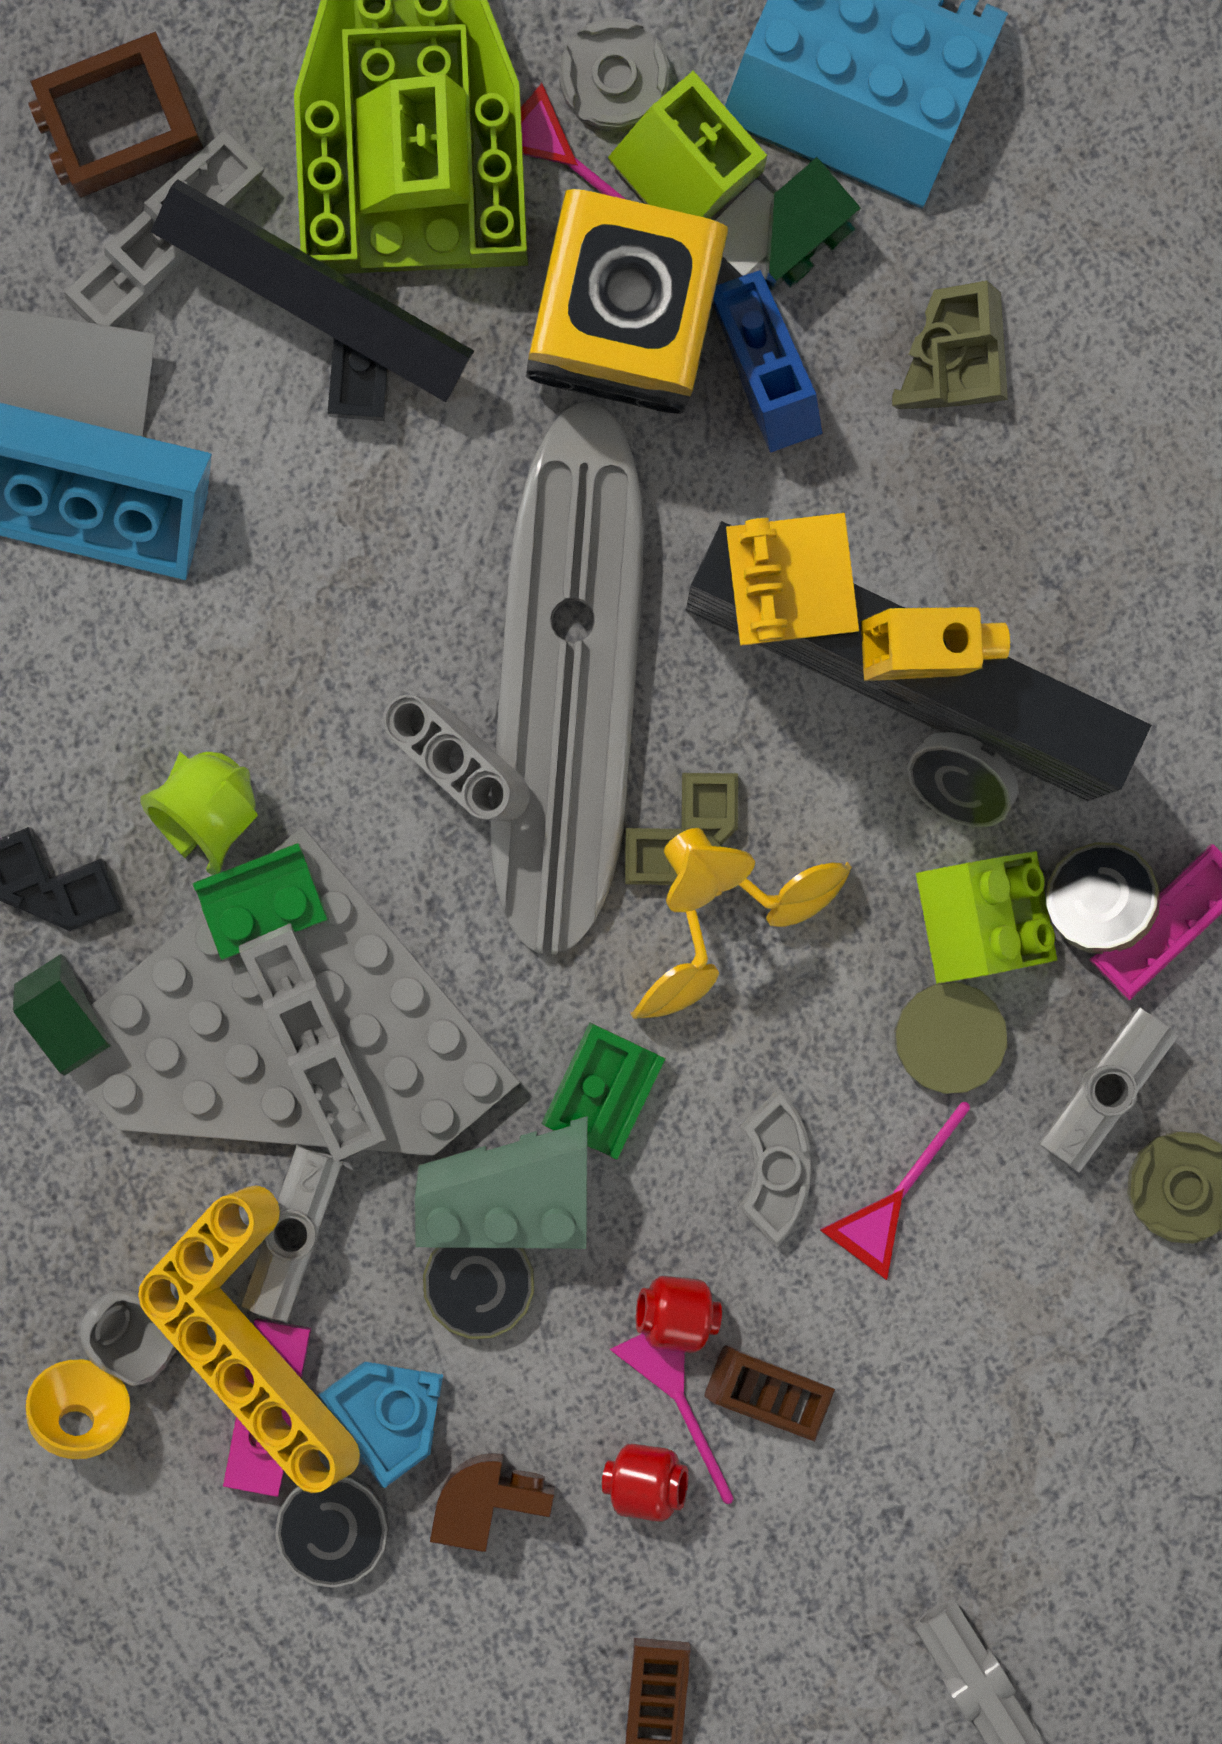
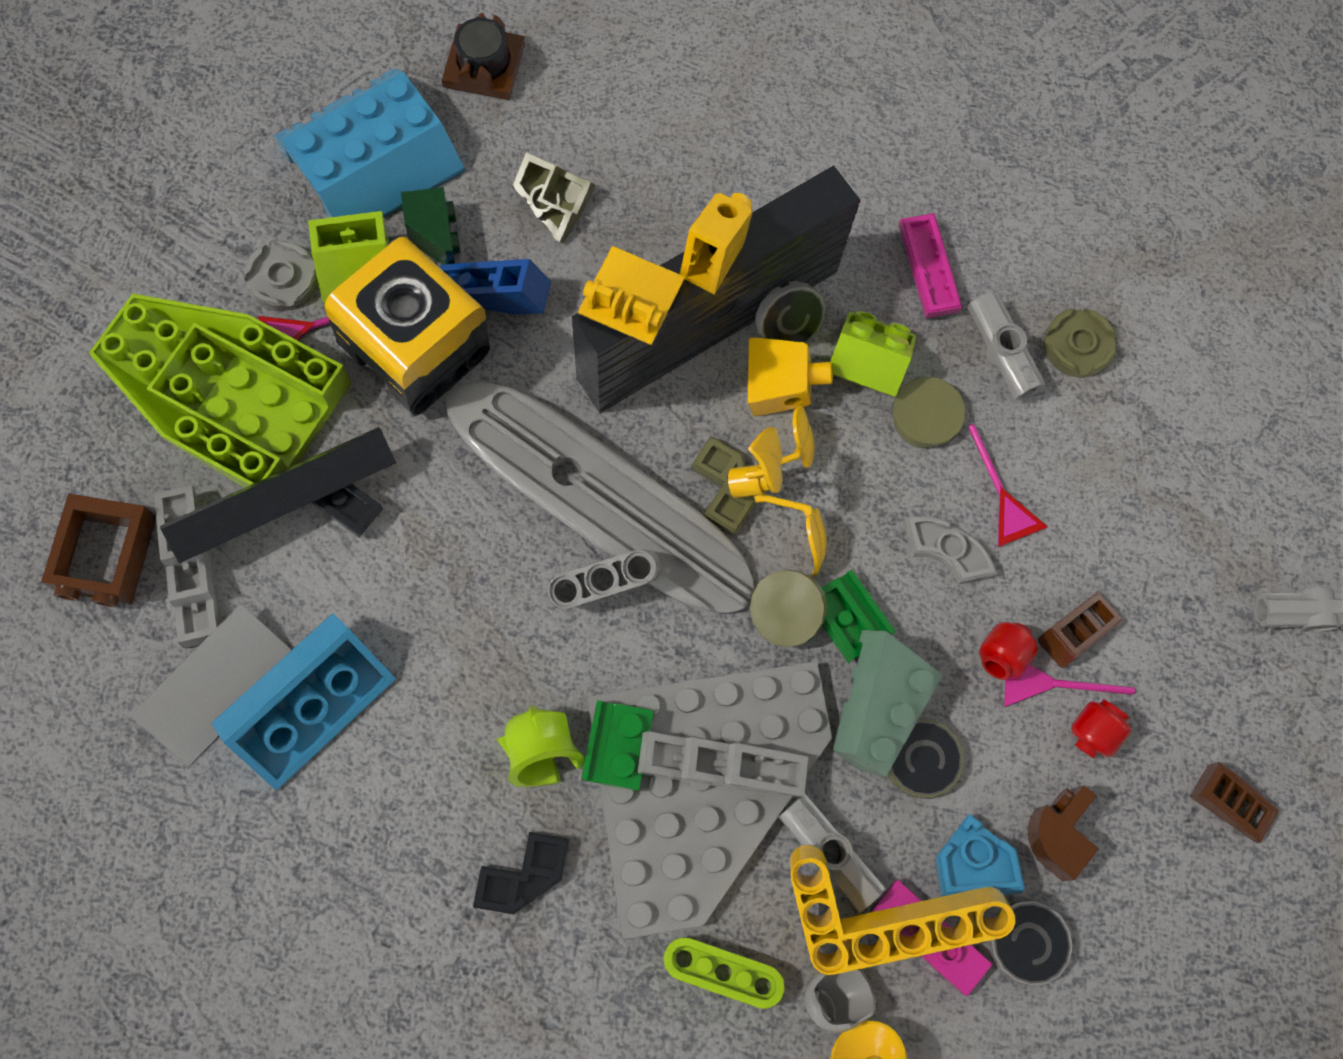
camera: 65 degrees left, 15 degrees down
(59, 1015) = (611, 916): dark green slope -> none
(72, 1210) = (742, 978): none -> lime plate
(412, 145) = (237, 388): lime slope -> none
(562, 1008) = (788, 608): none -> olive tile
(874, 818) = (782, 375): none -> yellow torso
(1103, 897) = (897, 287): tile -> none
(1105, 122) = (482, 52): none -> piece

